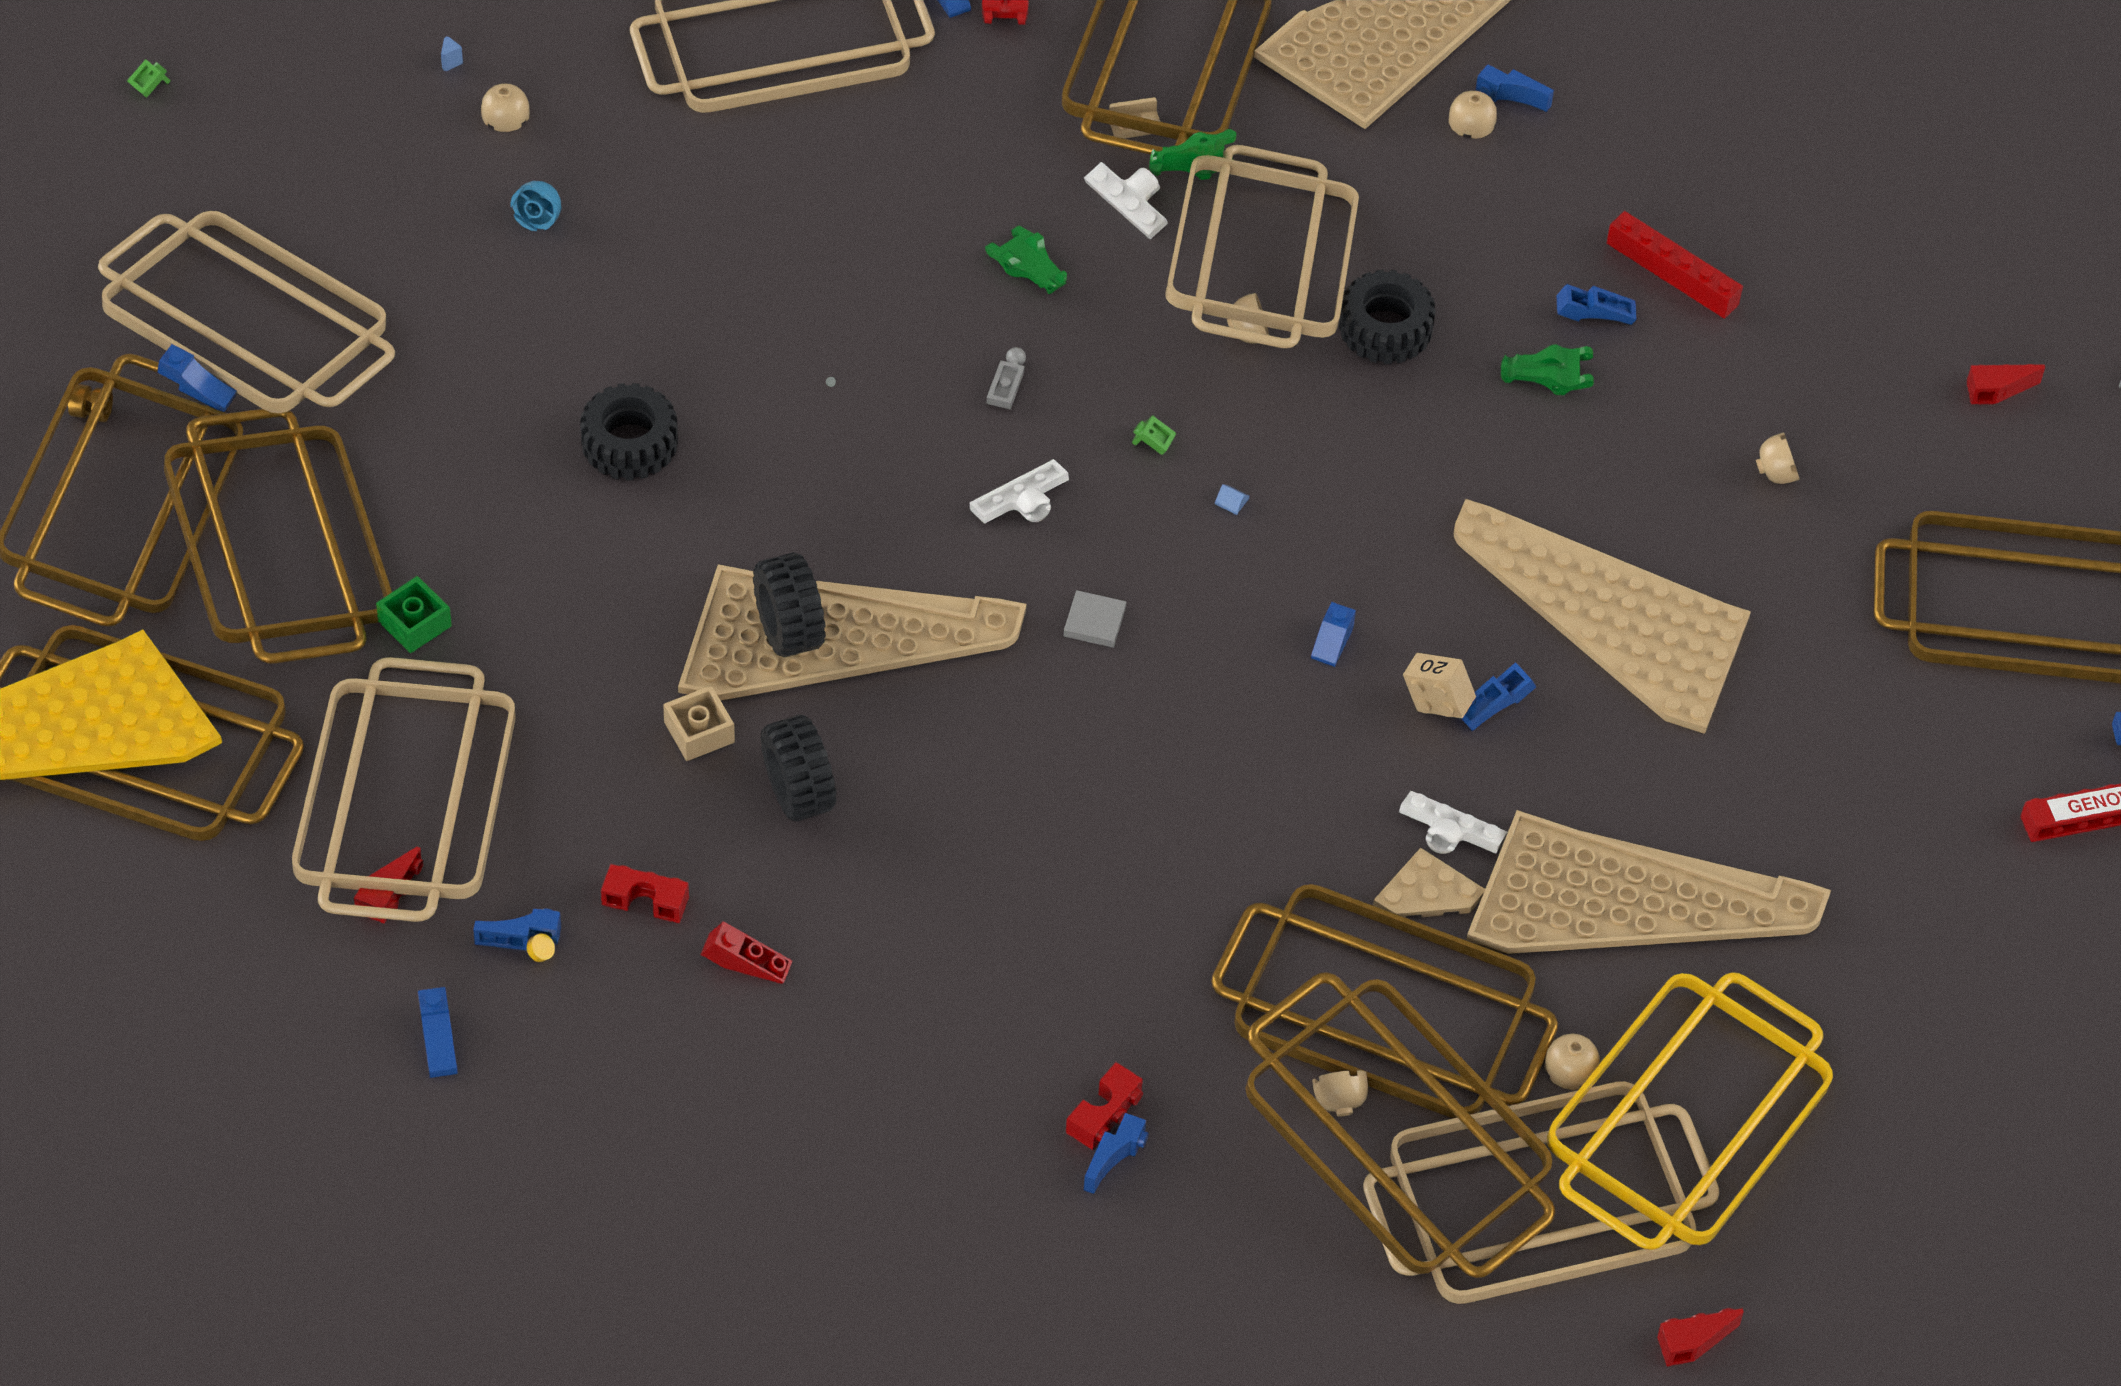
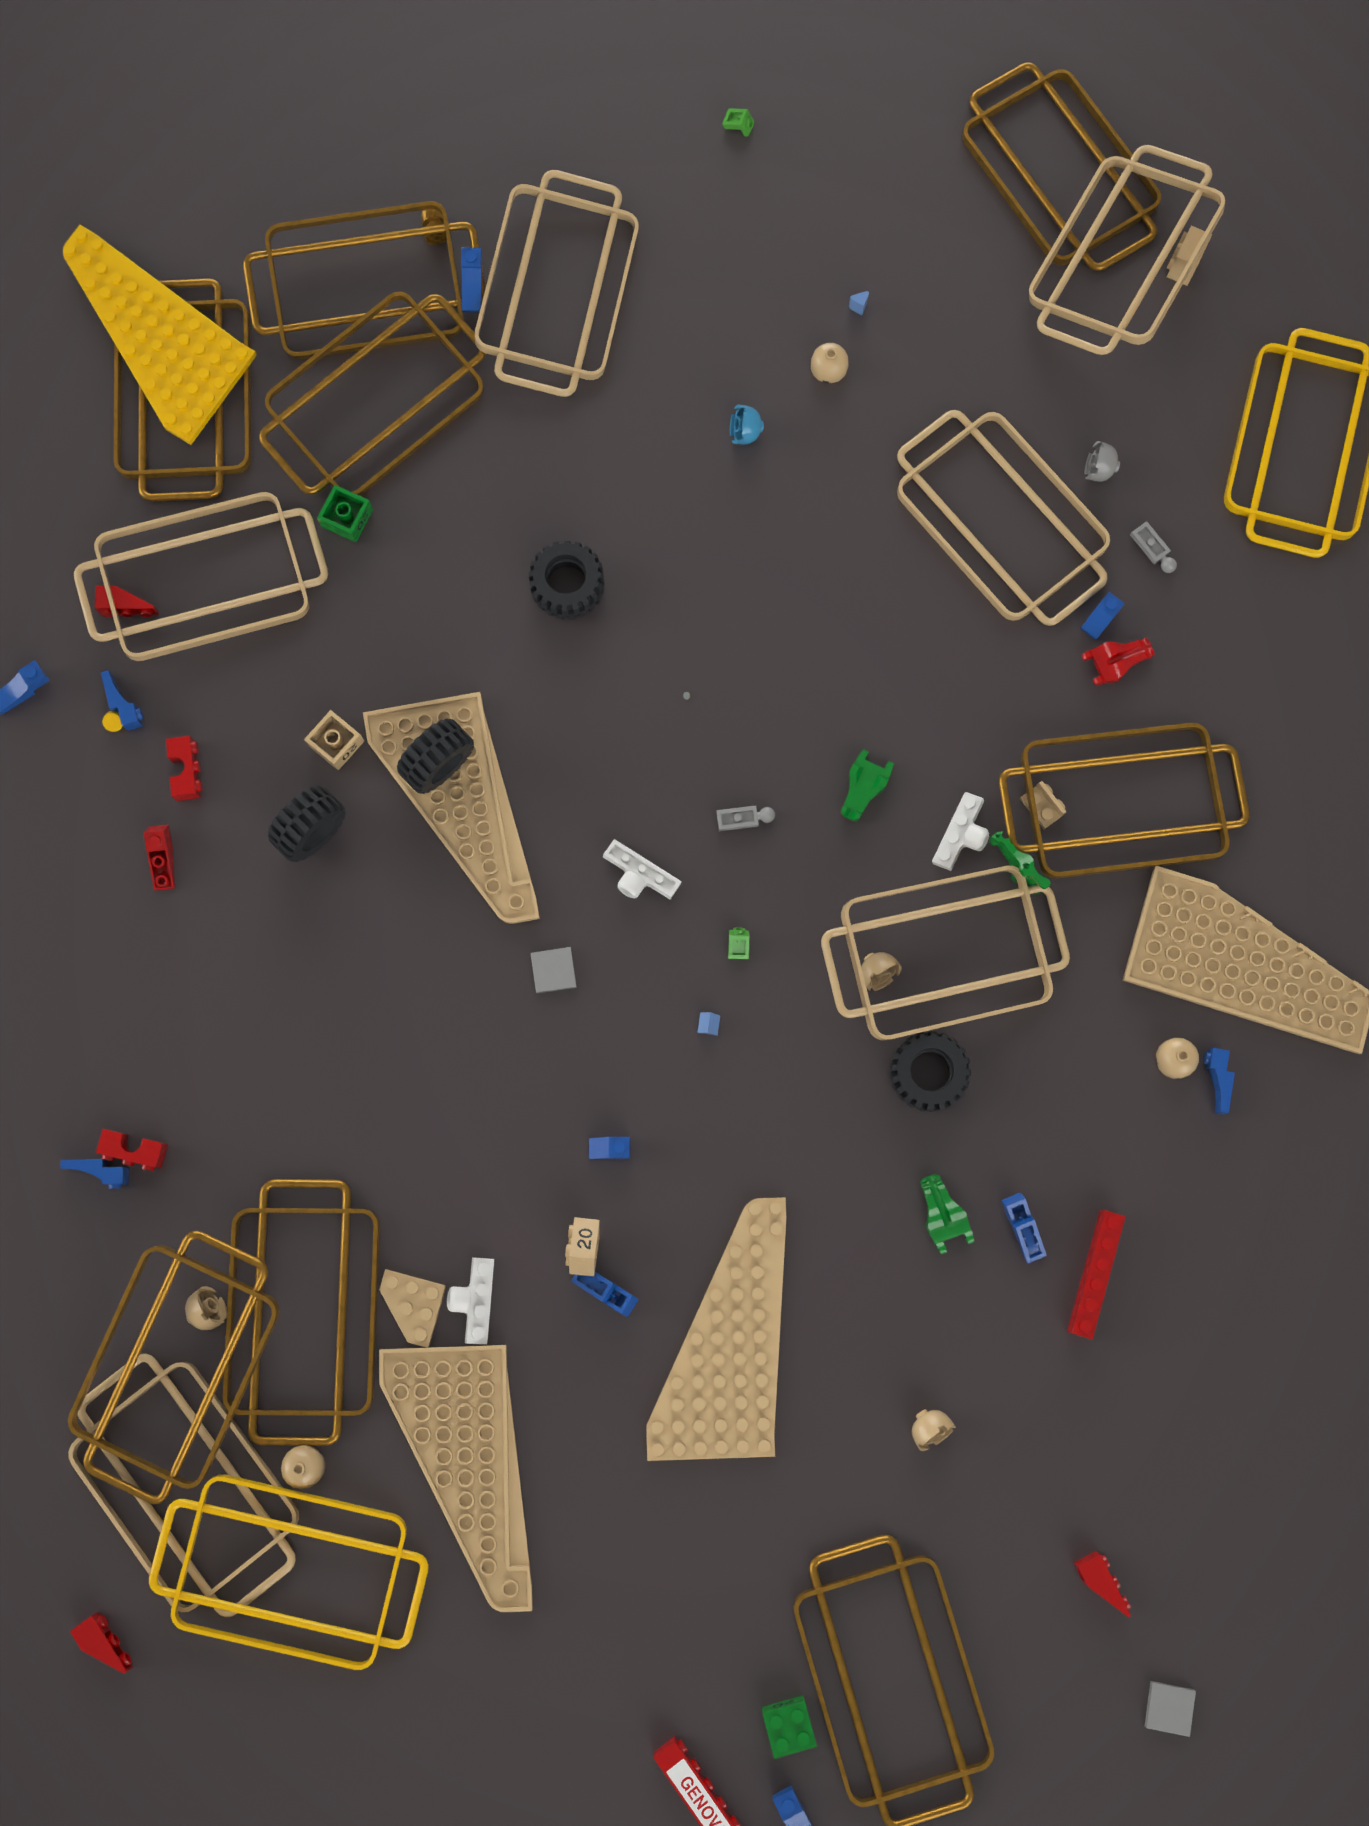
camera: 70 degrees right, 25 degrees up
(2048, 701) = (788, 1727): none -> green brick

